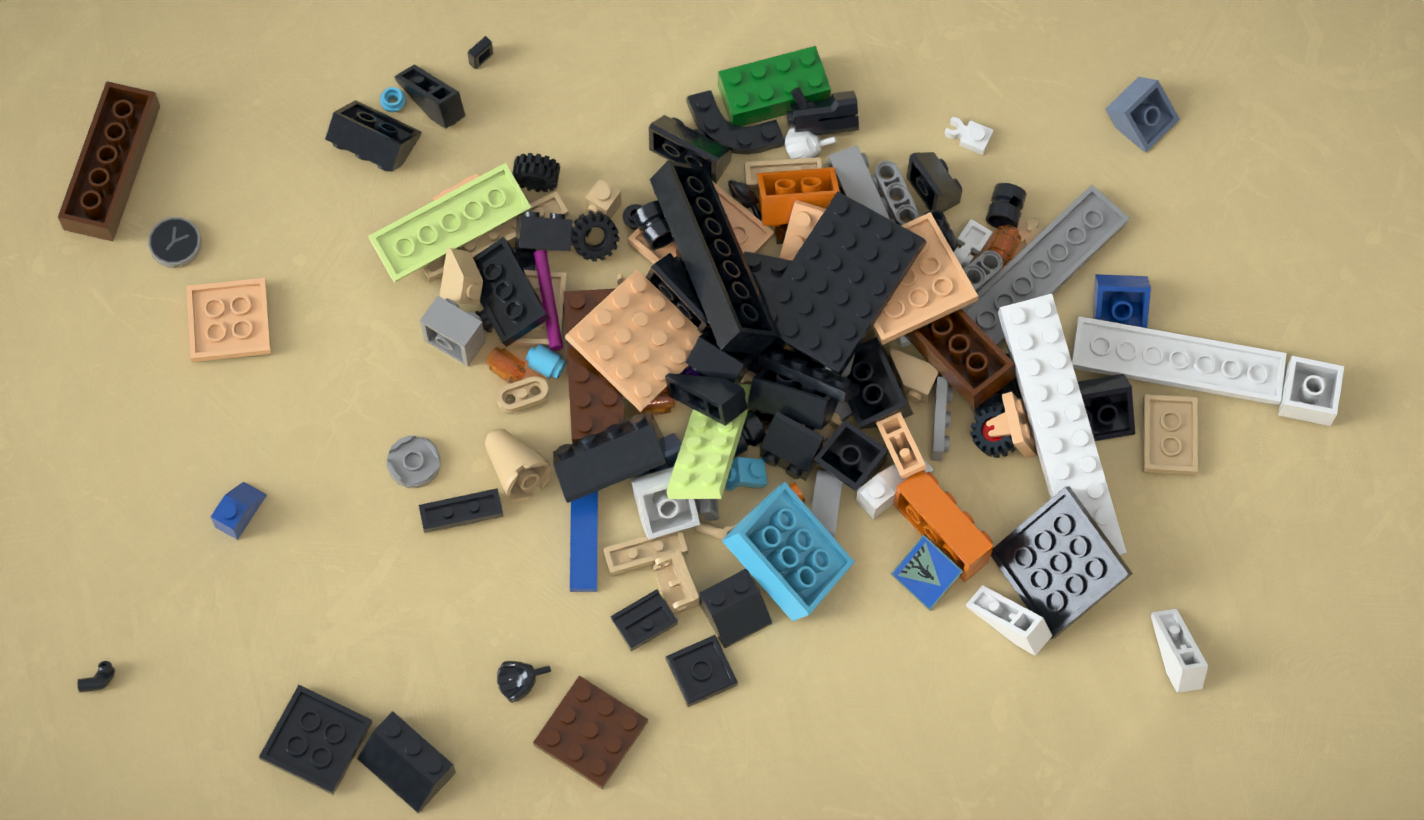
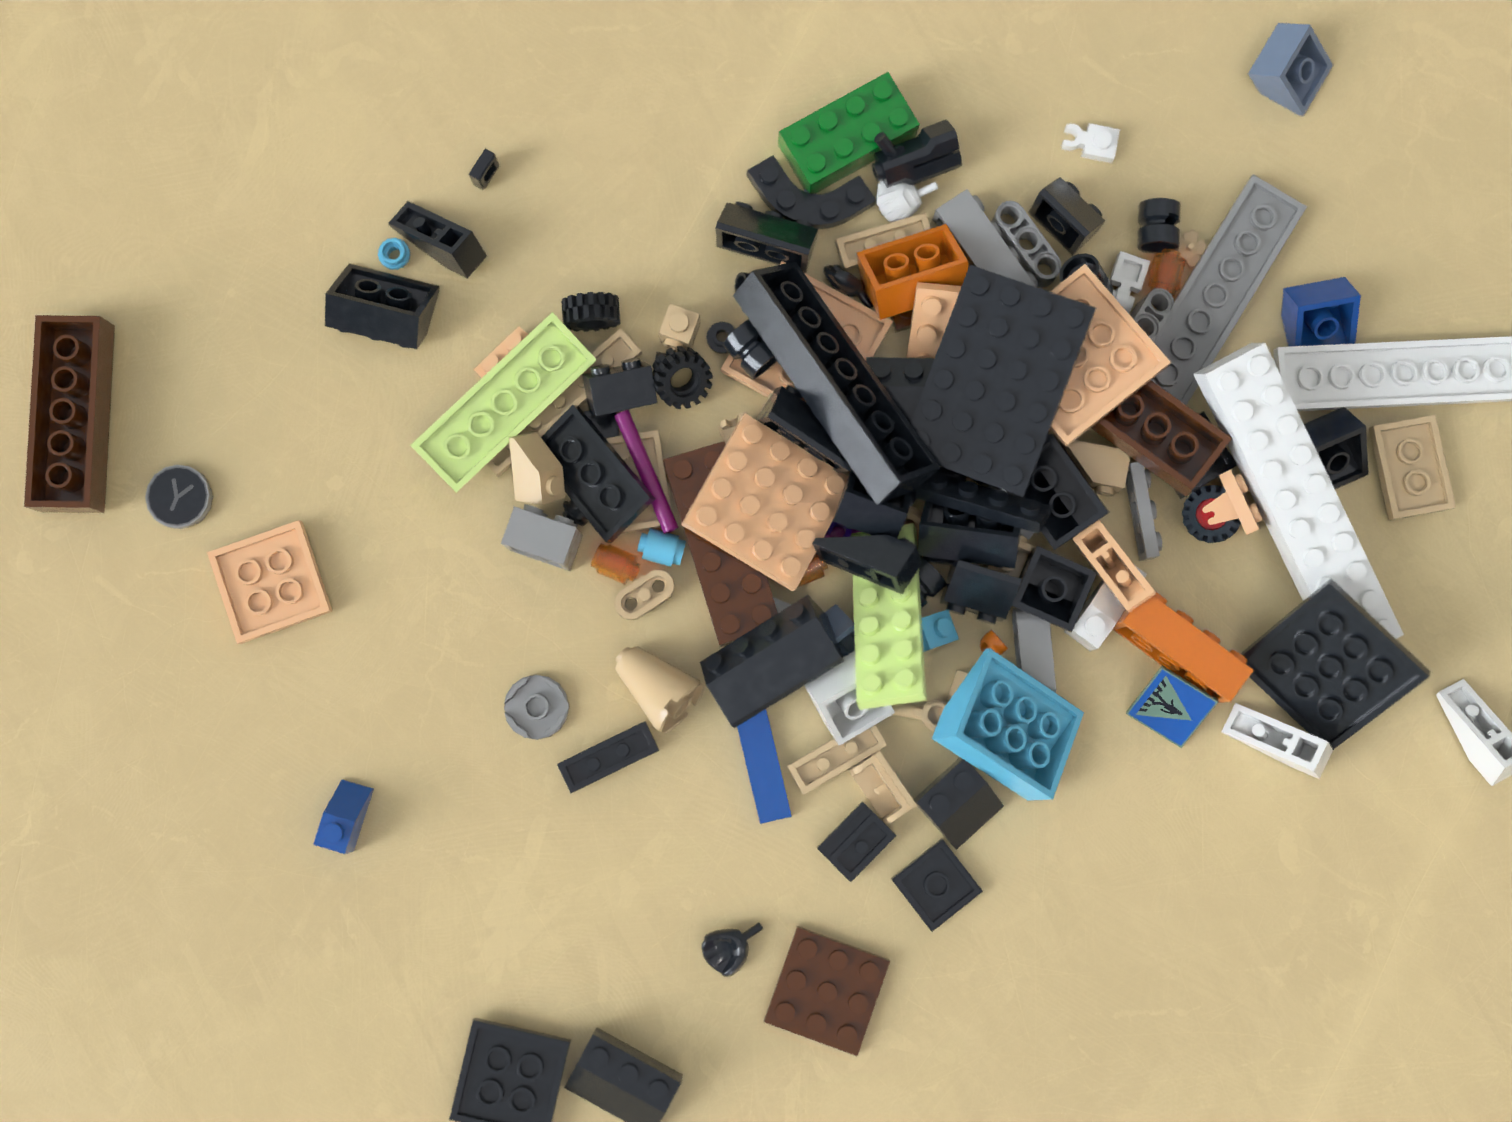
camera: 15 degrees left, 15 degrees up
(100, 680) = (237, 1067): black arm -> none

